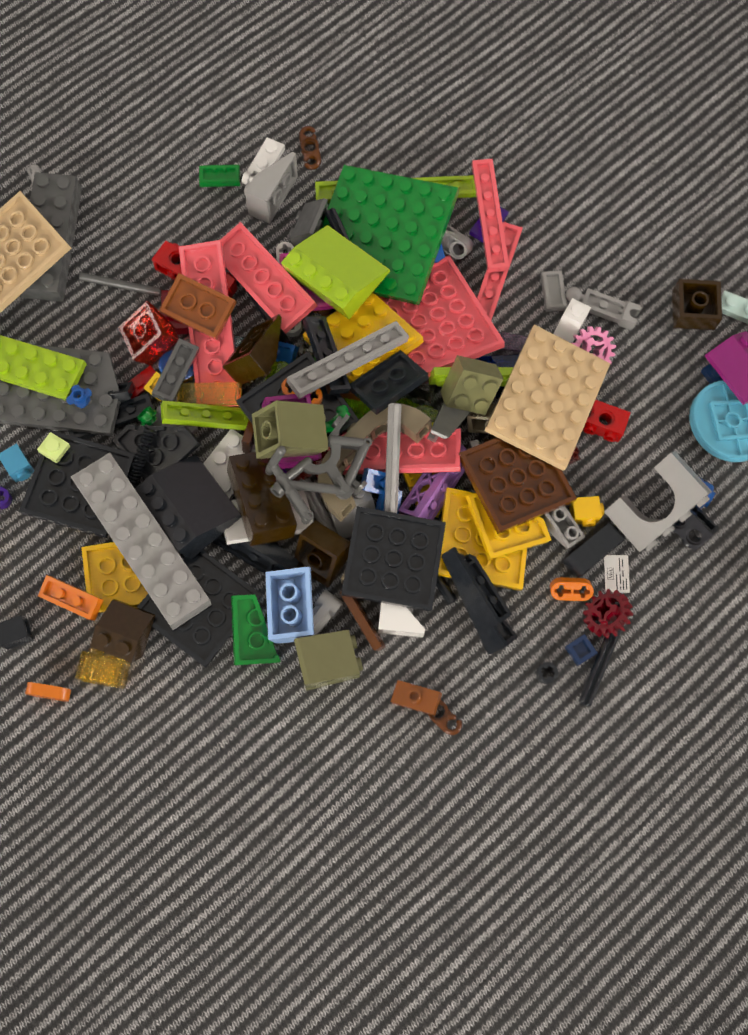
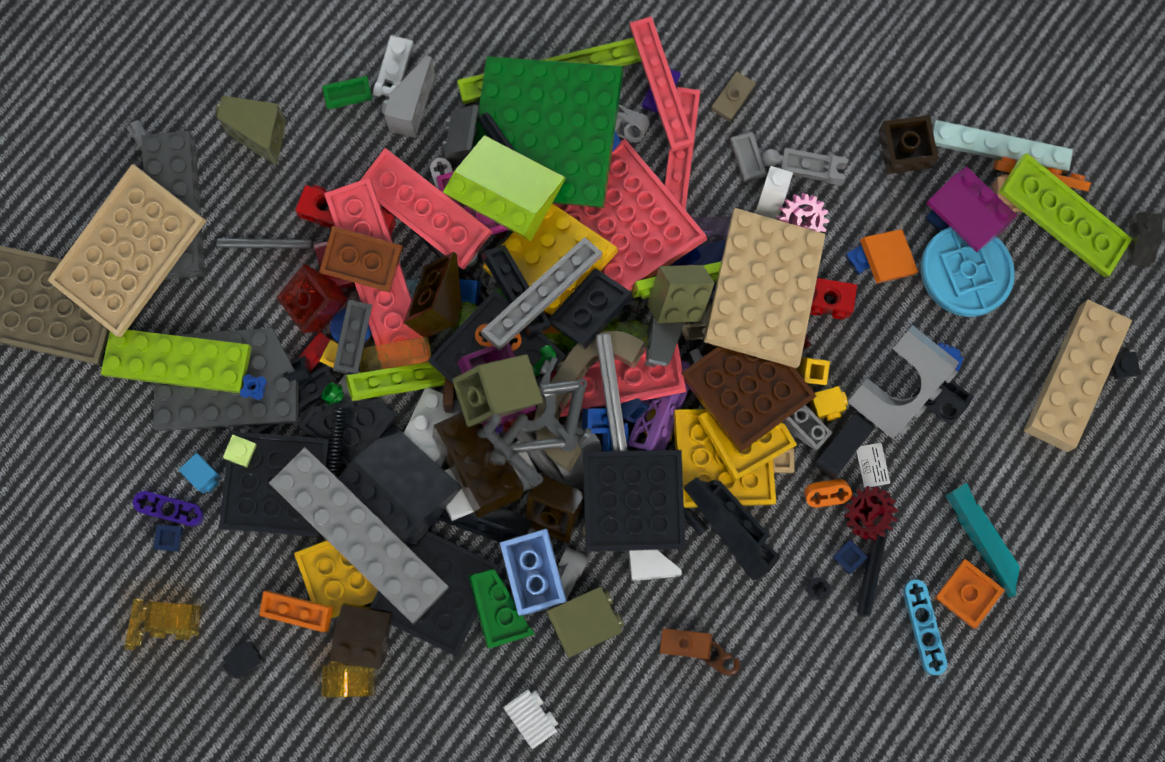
camera: 10 degrees left, 5 degrees up
(48, 691) = (296, 716): orange beam -> none
(133, 184) = (253, 124): none -> olive slope
(260, 737) = (530, 718): none -> white brick
(304, 141) = (449, 45): reddish brown piece -> none
(364, 623) = (616, 575): reddish brown tile -> none
(410, 479) = (633, 409): none -> dark blue slope
(537, 555) = (785, 462): none -> tan tile
(550, 239) = (733, 96): none -> dark tan plate
(578, 478) = (814, 370): none -> yellow brick
(635, 727) = (920, 628): none -> medium azure beam
(638, 394) = (858, 260): none -> blue plate
(663, 395) = (889, 256): none -> orange tile
(686, 705) = (969, 594): none -> orange plate
(708, 658) = (985, 538): none -> teal wedge

